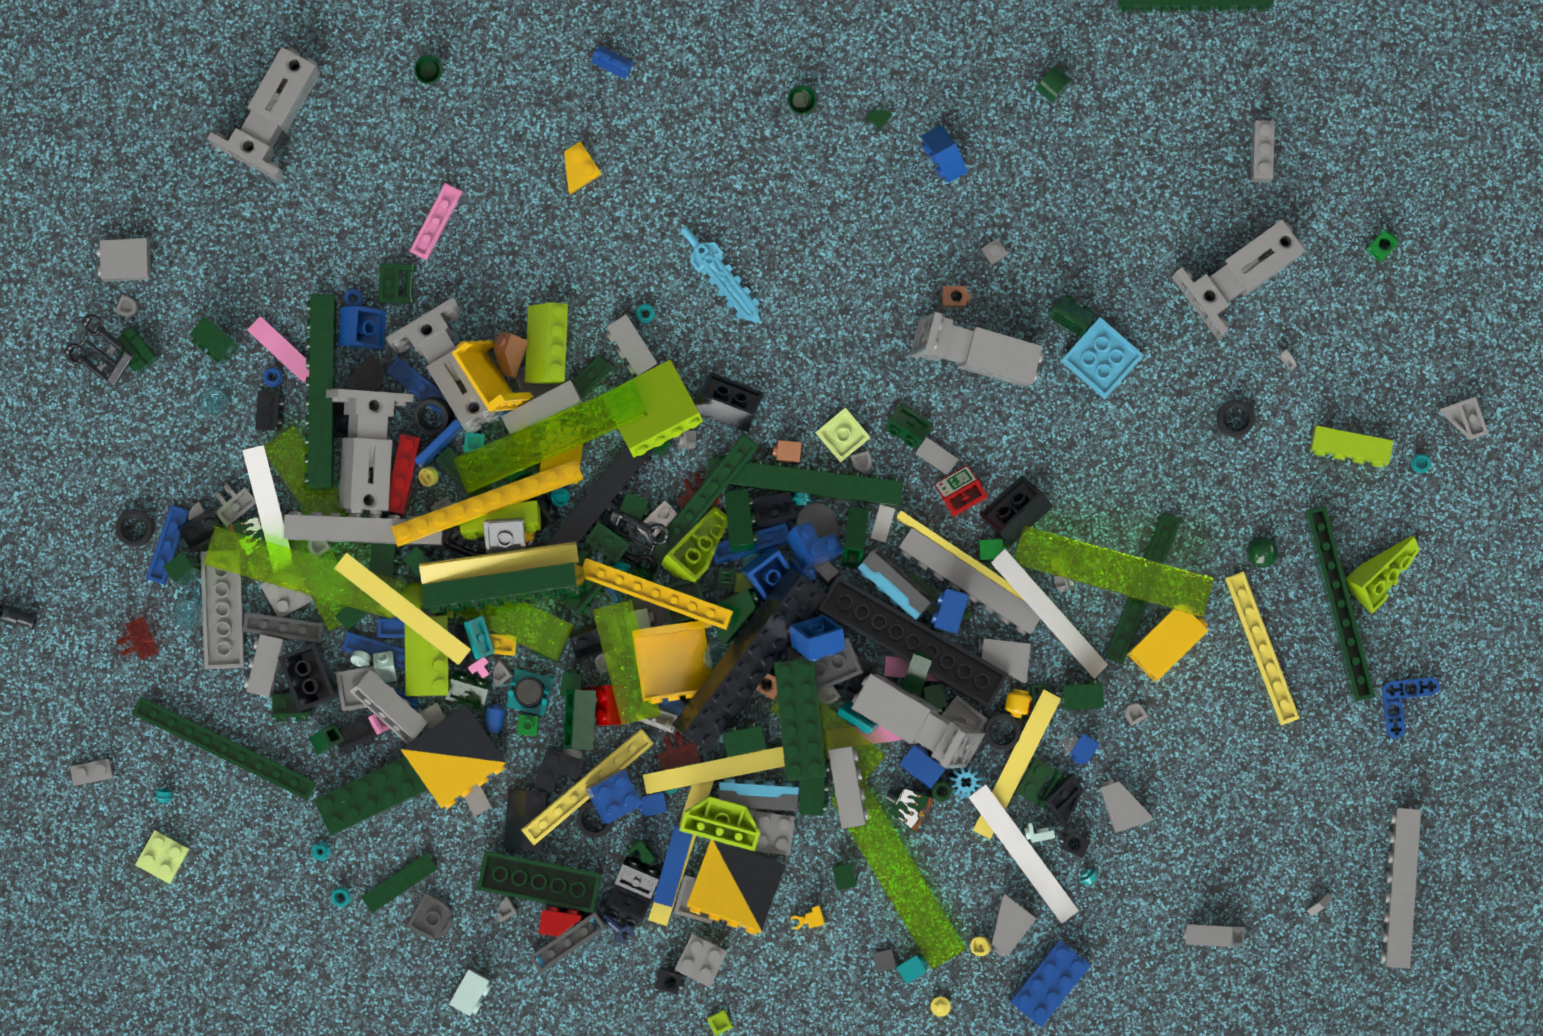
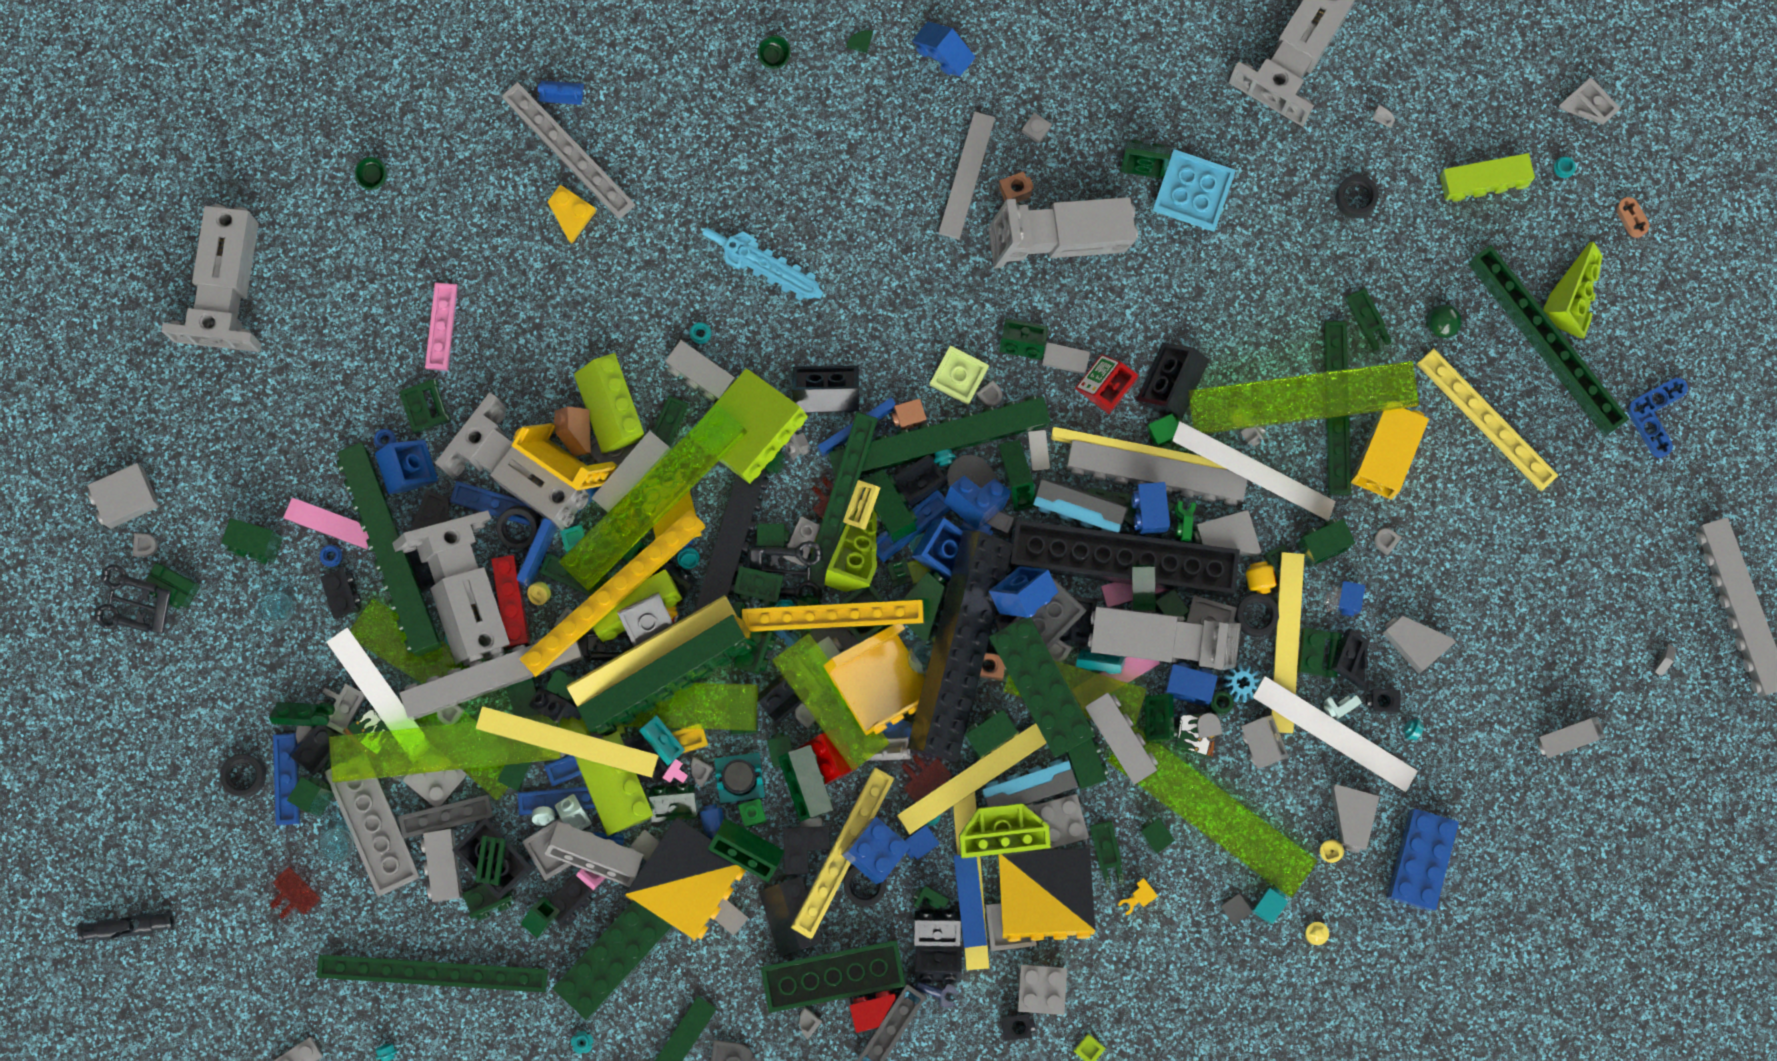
camera: 25 degrees left, 5 degrees down
(200, 497) = (301, 714): none -> dark green hinge
(296, 692) = (481, 862): none -> dark green tile
(403, 575) = (553, 706): none -> black bracket
(510, 753) = (746, 849): none -> dark green brick
(598, 115) = (568, 151): none -> light grey plate
(719, 514) = (864, 507): none -> light yellow tile
(726, 447) = (842, 436): none -> blue tile
(800, 871) = (1107, 851): none -> dark green hinge
(885, 783) = (1159, 718): none -> dark green bracket
(919, 268) = (966, 175): none -> light grey tile
(922, 806) = (1208, 726): none -> light grey tile
(963, 837) = (1264, 742): none -> light grey brick
(971, 637) = (1183, 530): none -> green plate
(1200, 523) = (1367, 317): none -> dark green hinge
(1453, 528) = (1633, 217): none -> nougat beam

